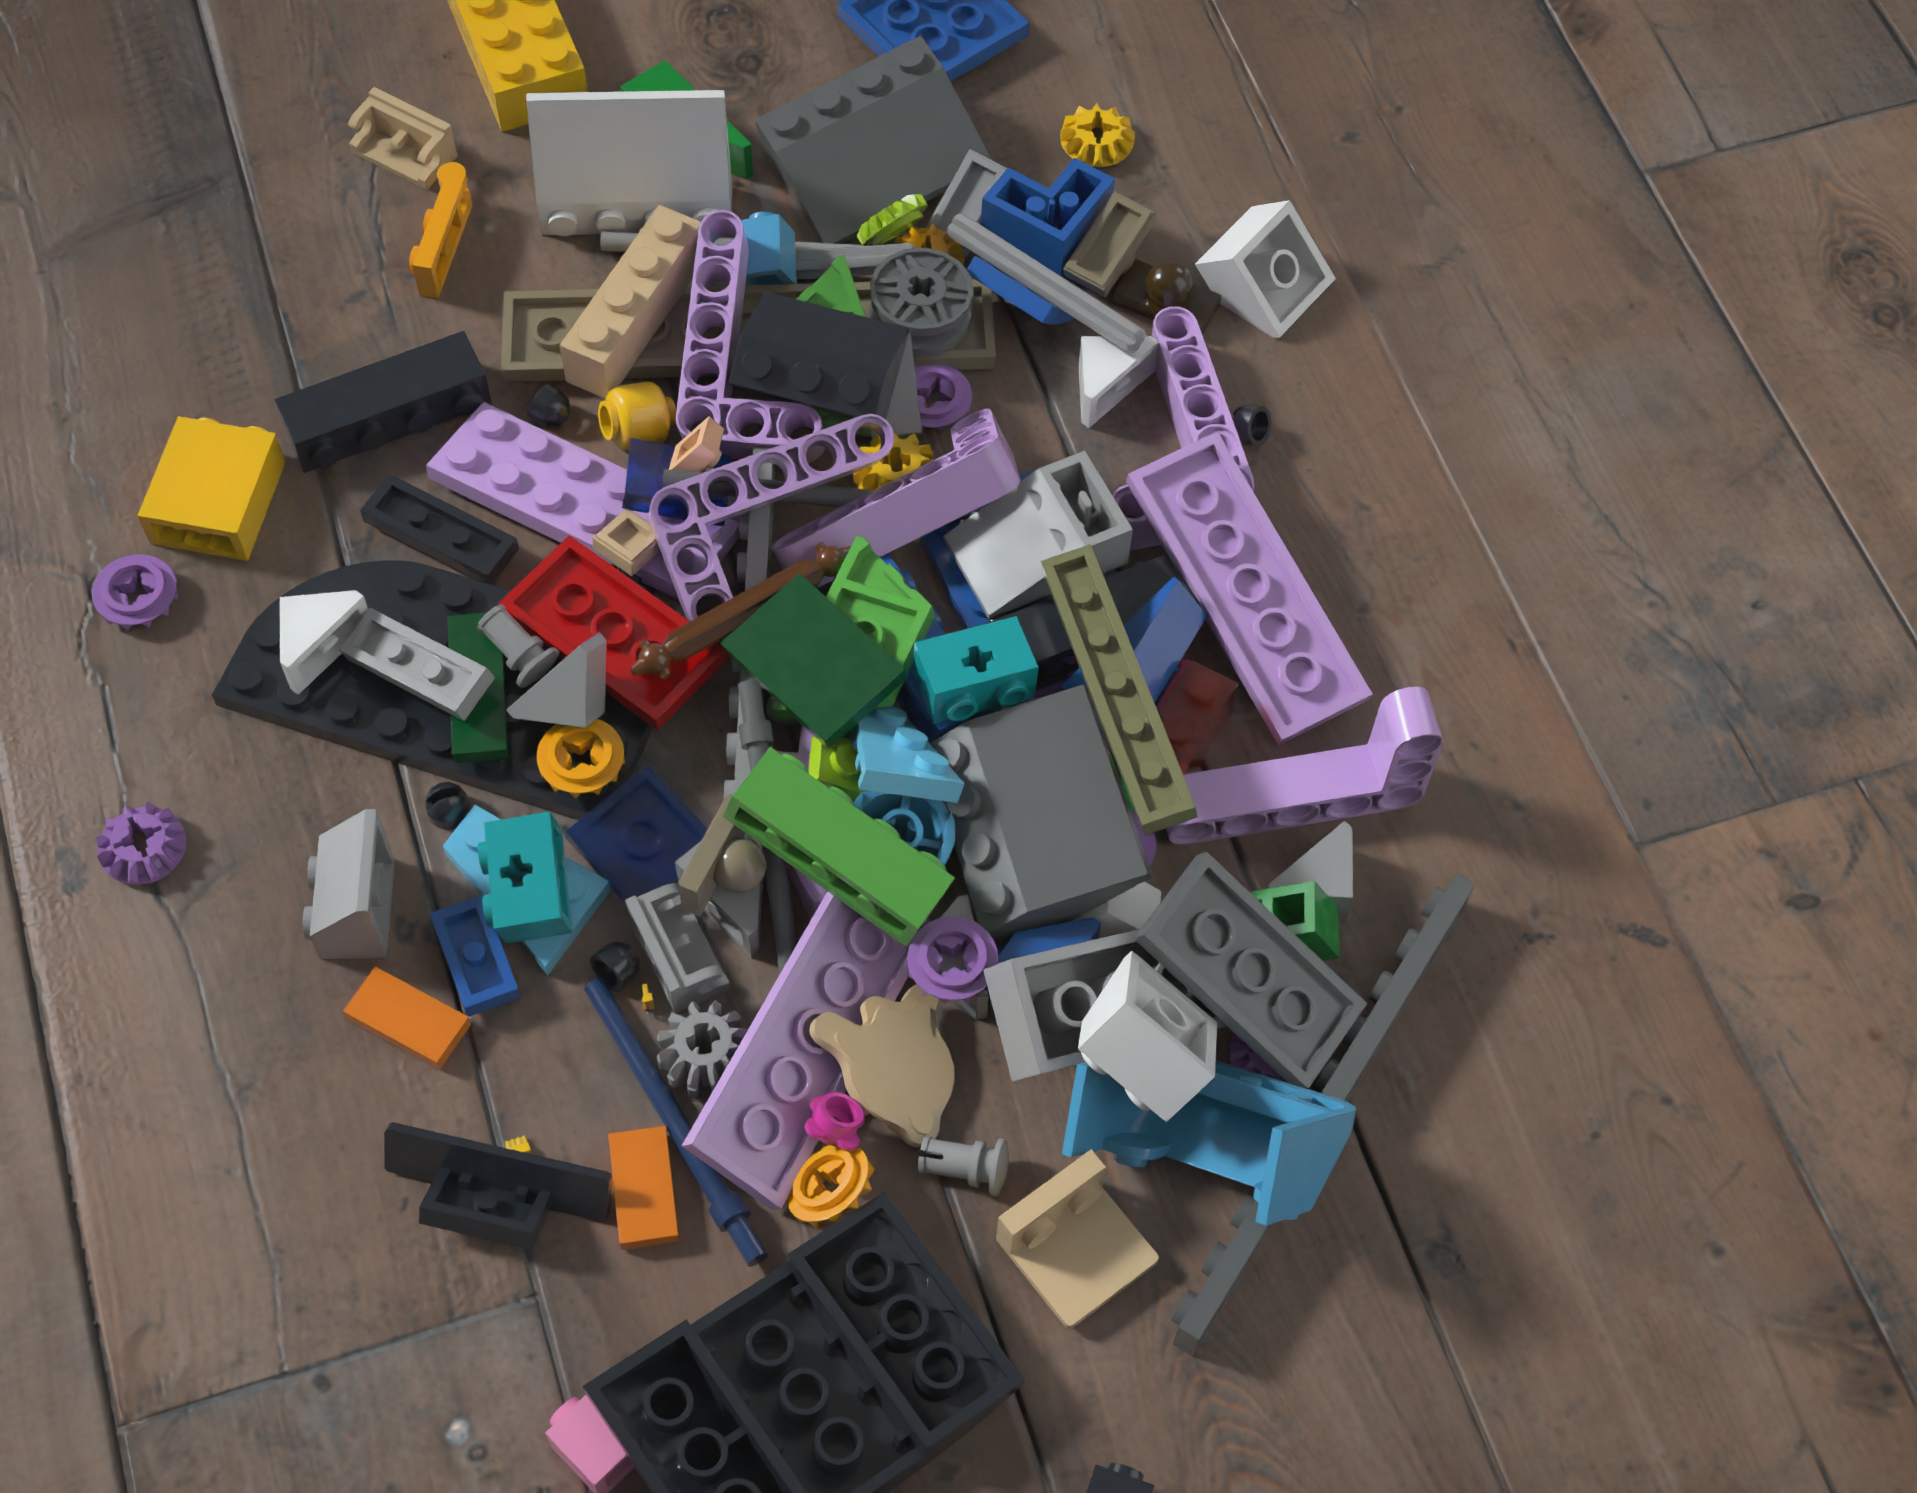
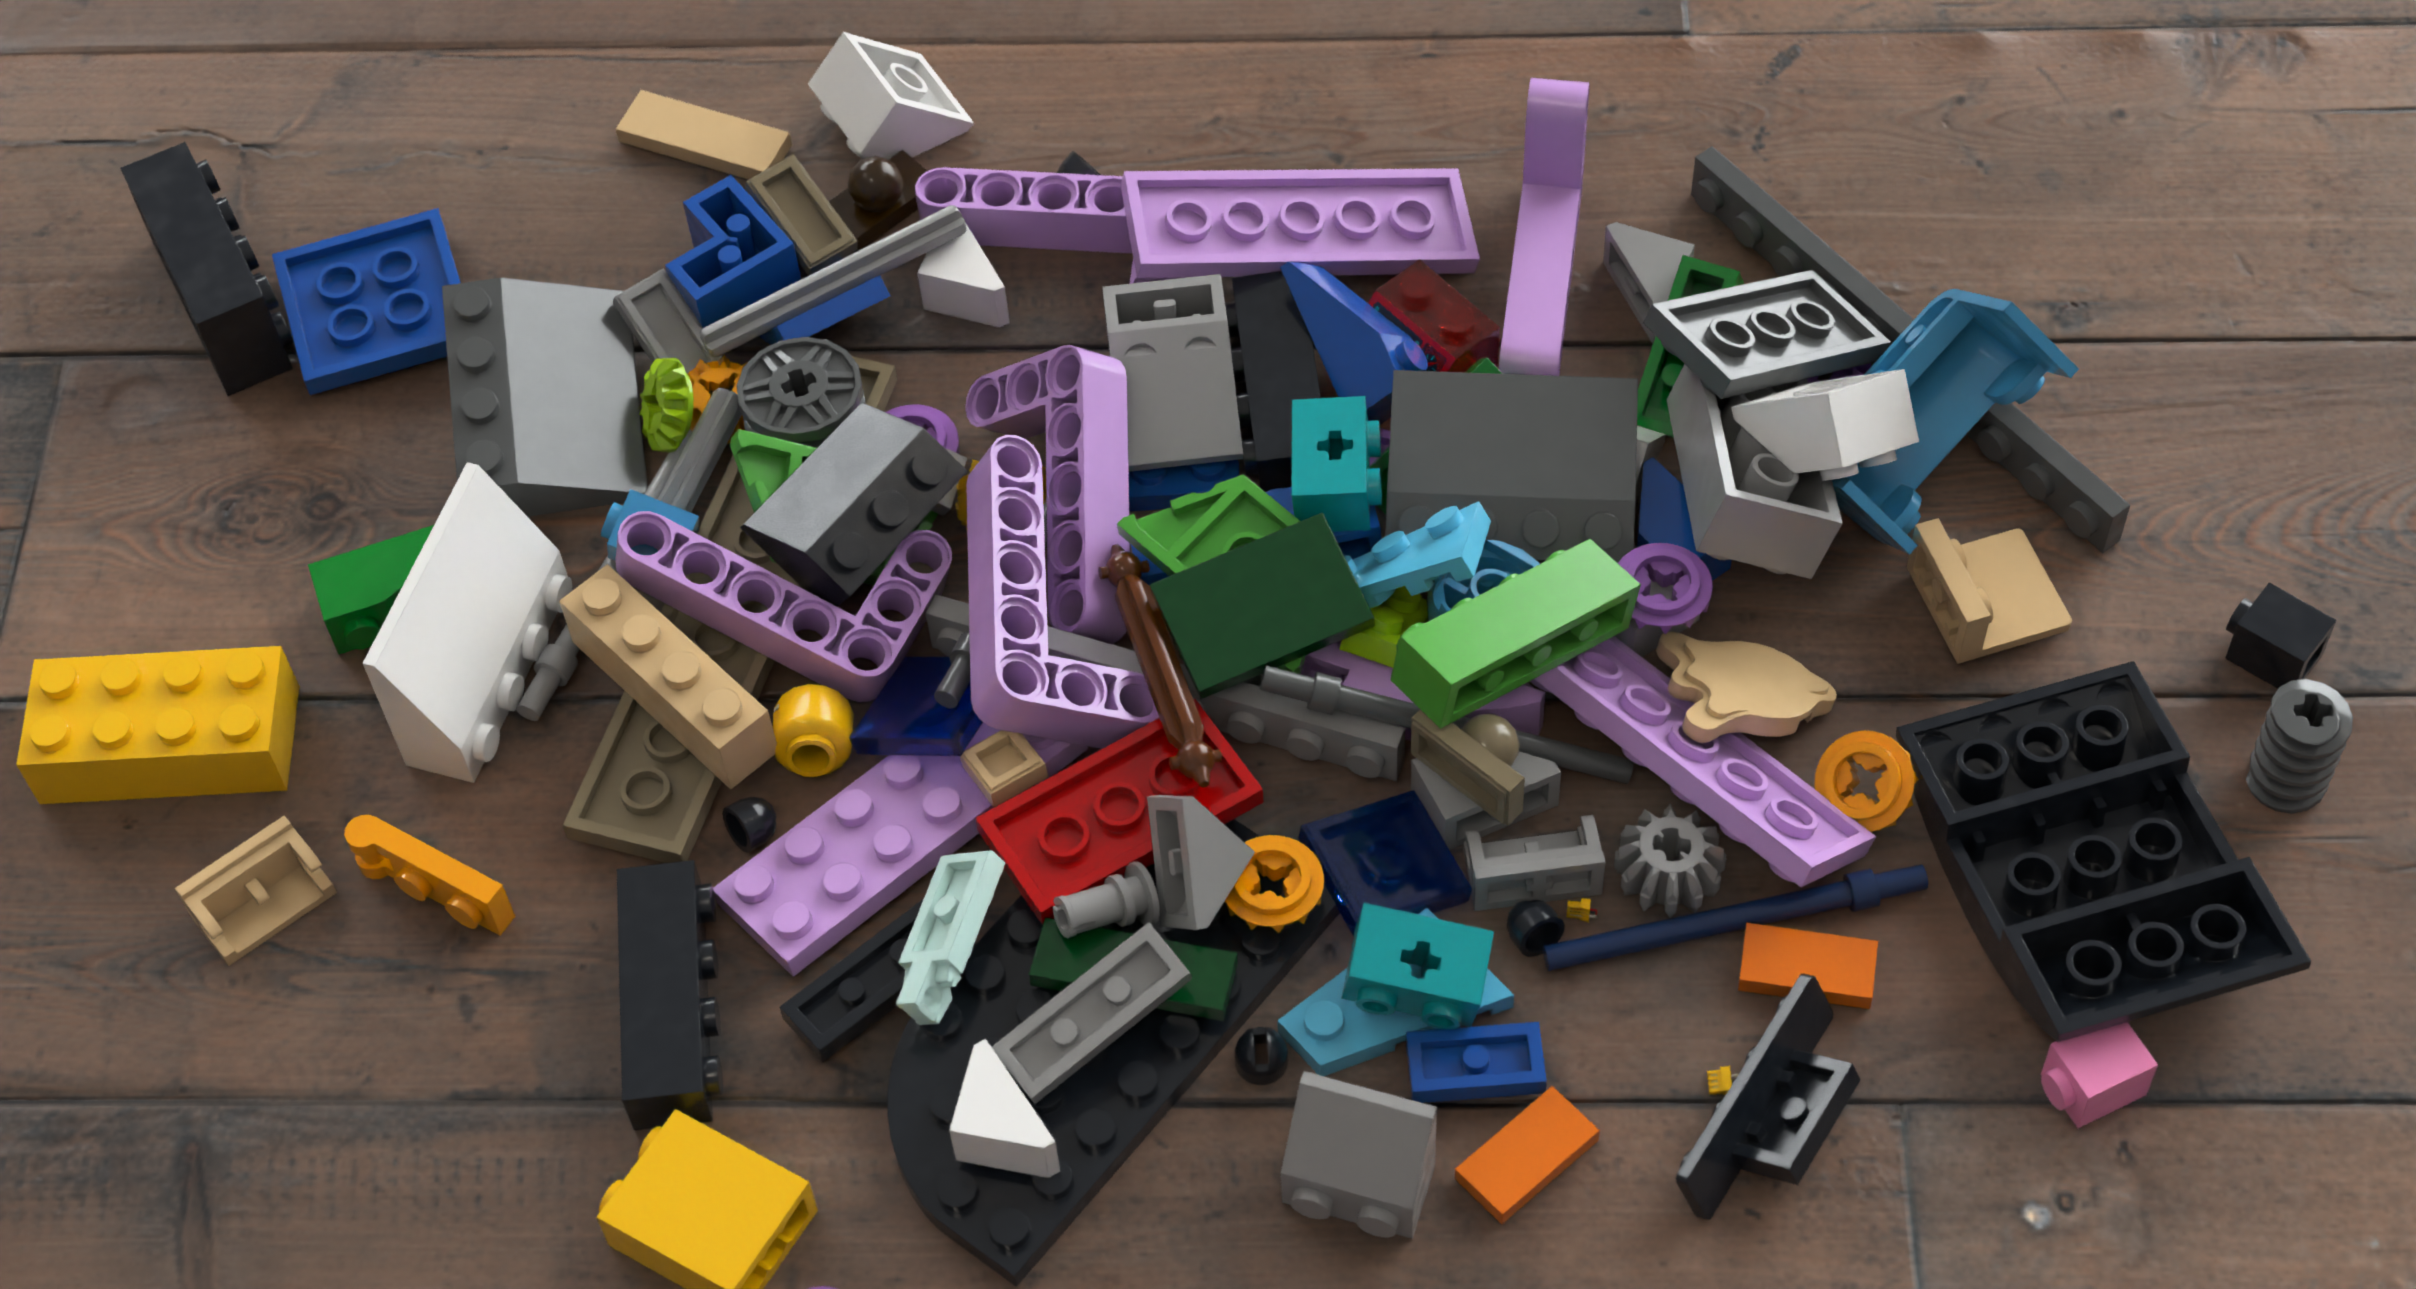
camera: 65 degrees left, 5 degrees down
(466, 550) = (946, 932): none -> light aqua hinge
(699, 448) = (916, 659): light nougat plate -> none
(835, 1120) = (1801, 749): dark pink plate -> none
(967, 1162) = (1875, 651): light grey pin -> none
(1081, 144) = (631, 214): yellow gear -> none
(1118, 690) = (1414, 336): olive plate -> none
(1181, 165) = (702, 136): none -> tan tile

